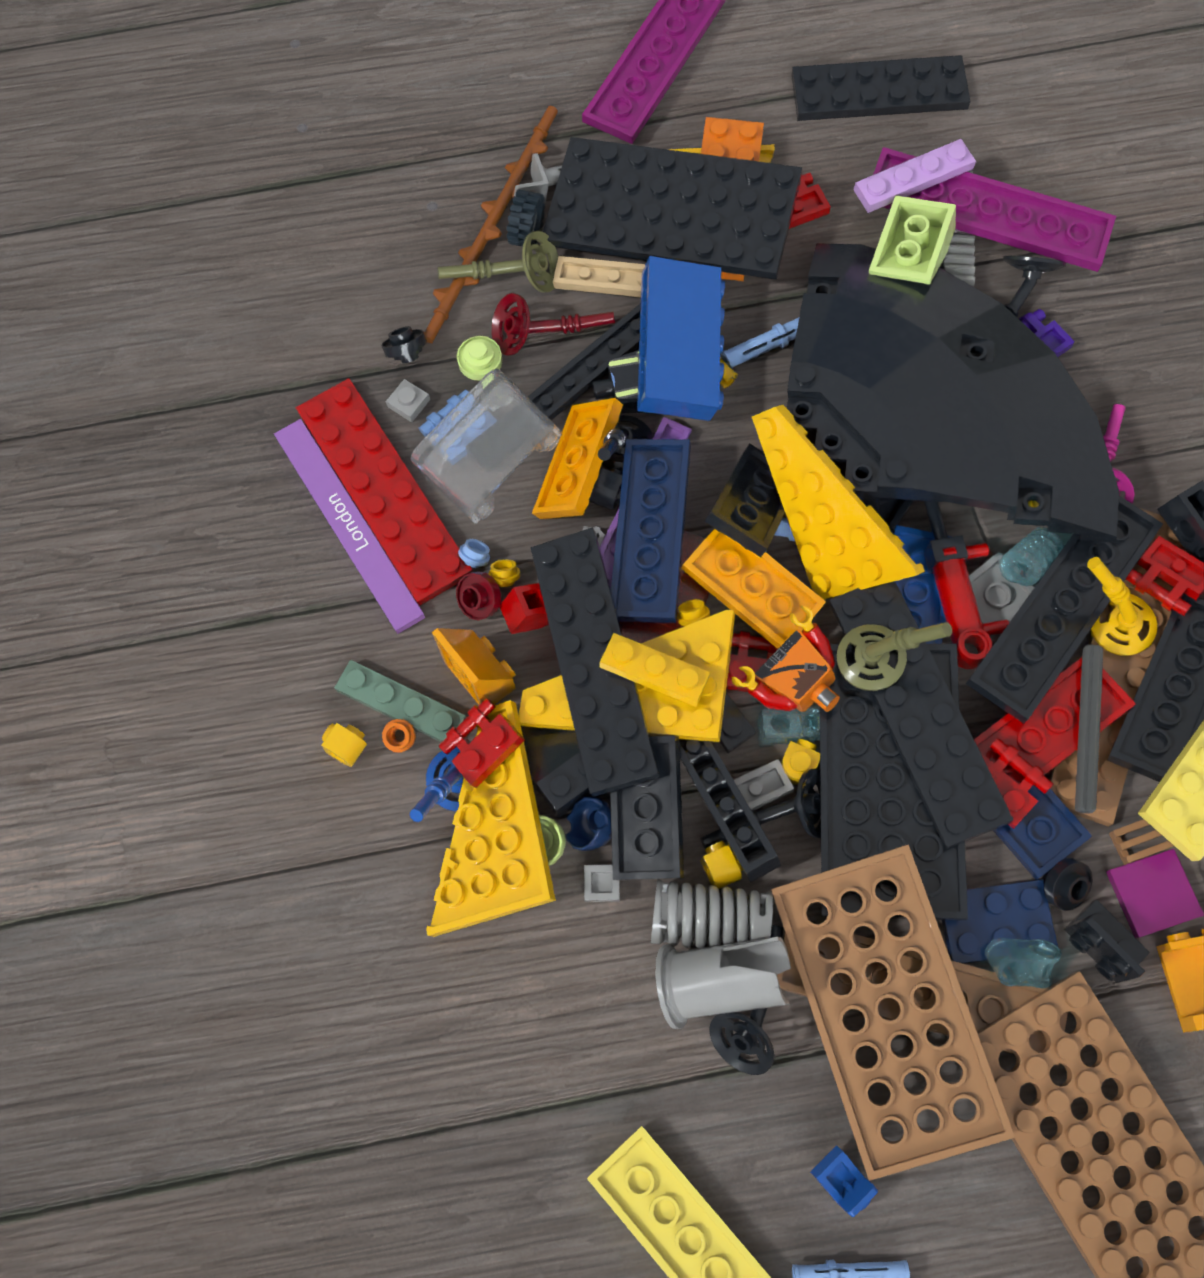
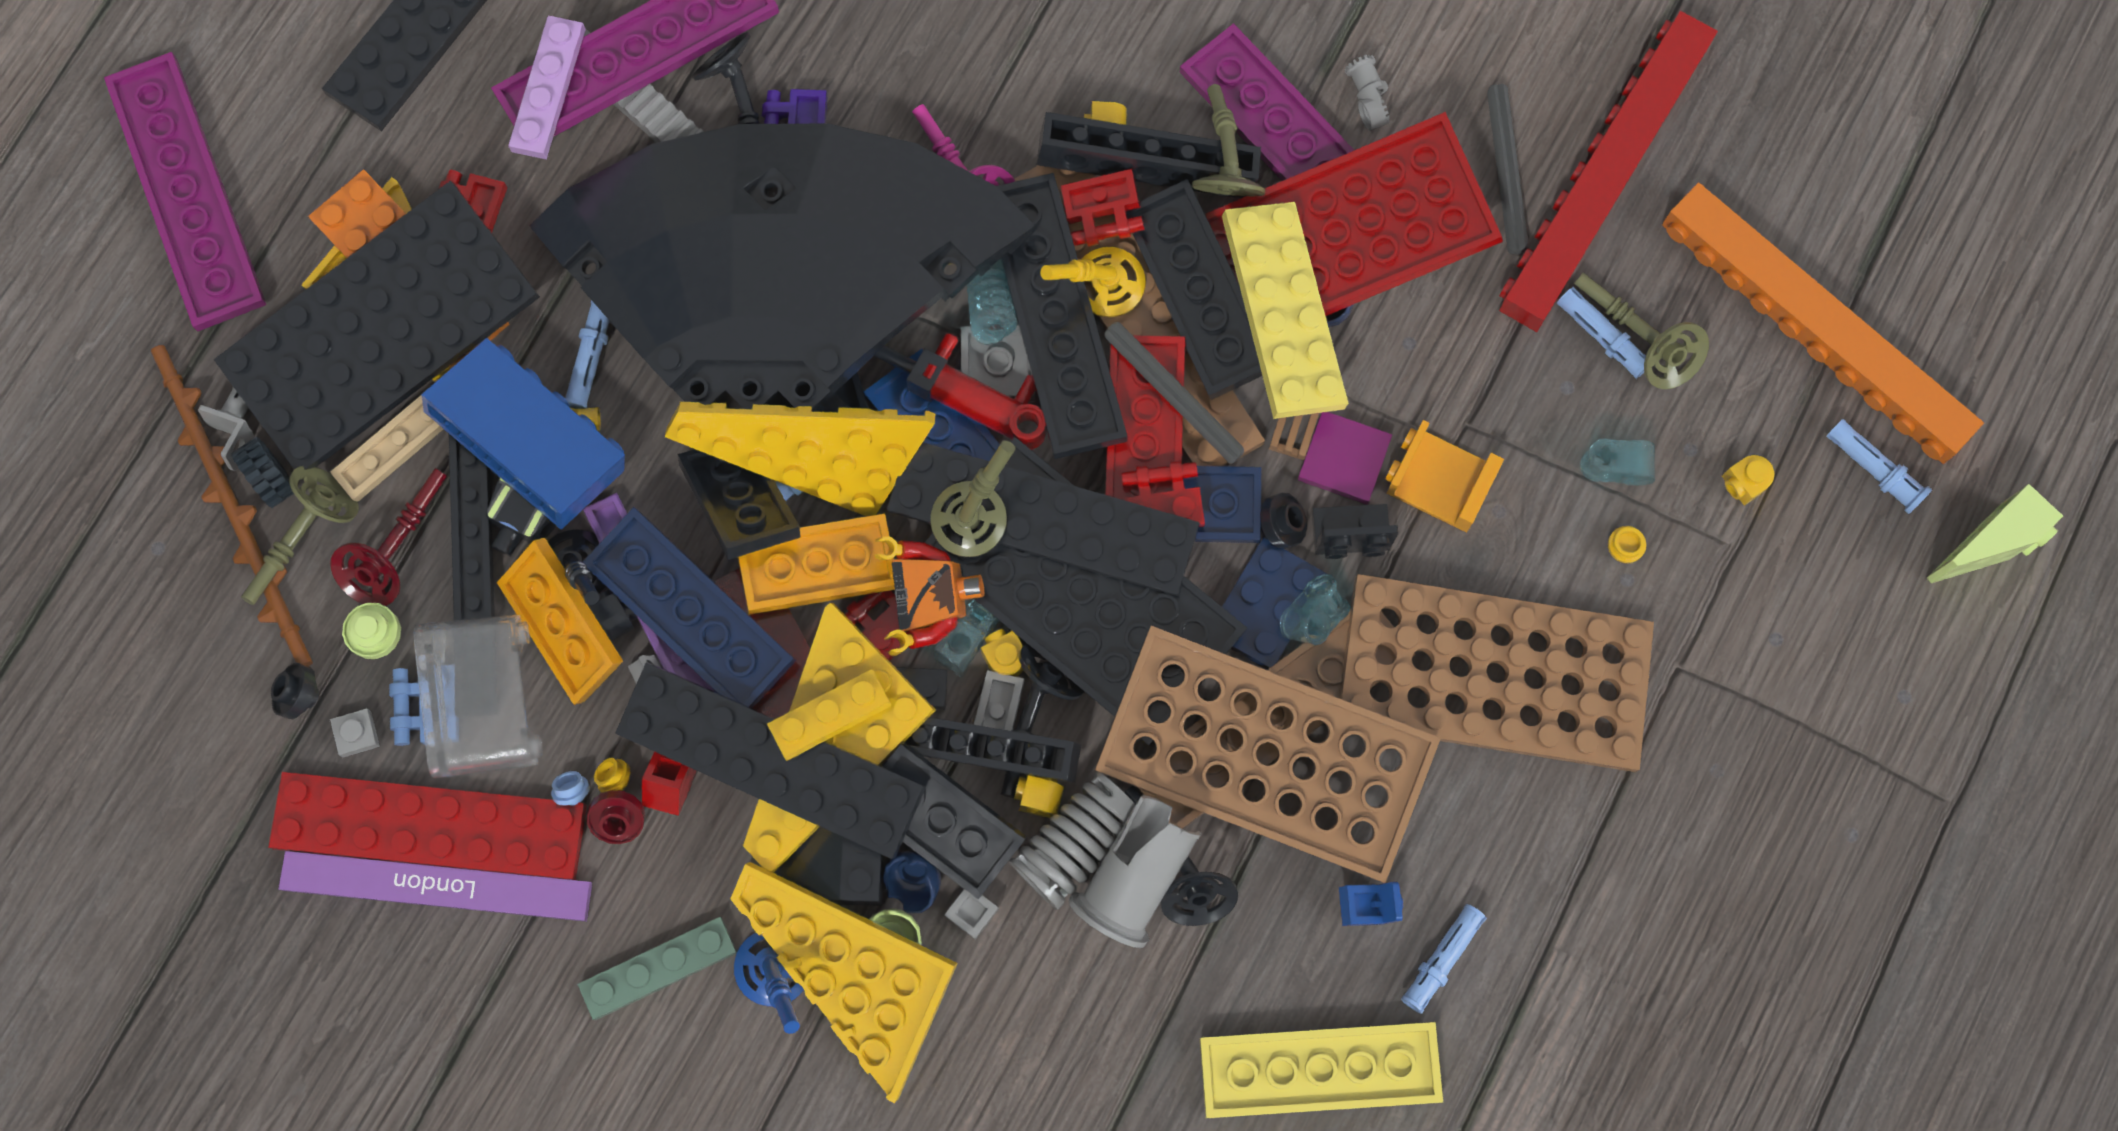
camera: 55 degrees left, 5 degrees up
(343, 743) = (655, 1049): yellow plate -> none
(390, 740) = (688, 1004): orange plate -> none
(474, 664) = (684, 871): light orange slope -> none
(487, 749) = (773, 920): red plate -> none
(692, 611) = (799, 638): yellow plate -> none
(914, 240) = (612, 145): yellowish green slope -> none

